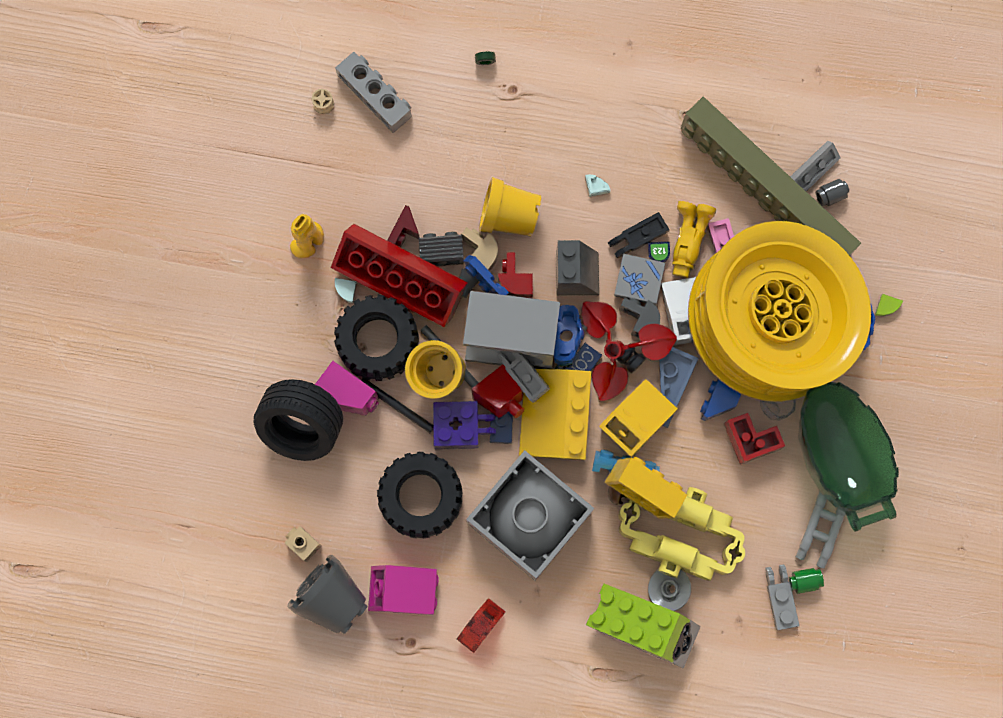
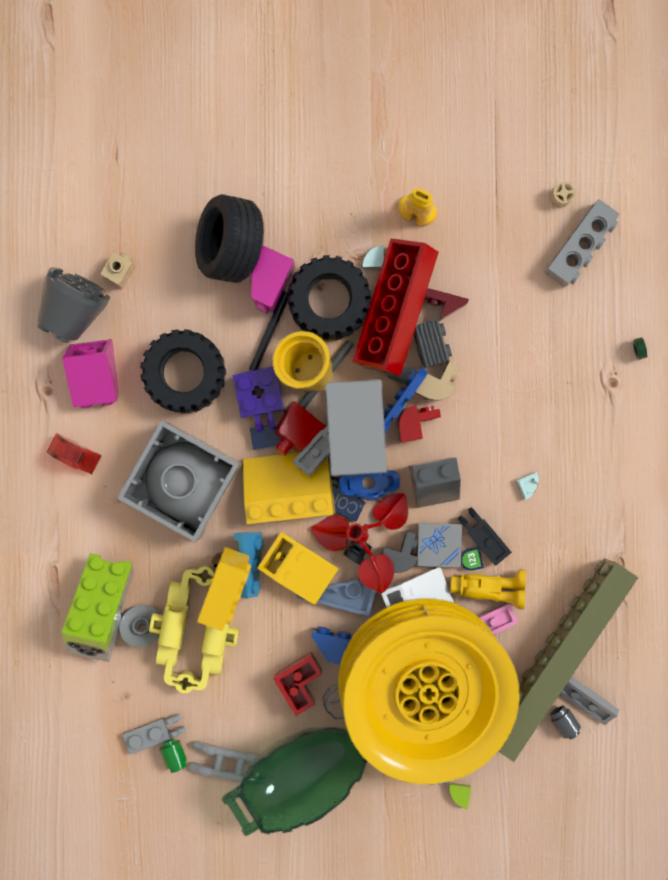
camera: 80 degrees right, 10 degrees up
(509, 209) = (483, 403): yellow piece -> none

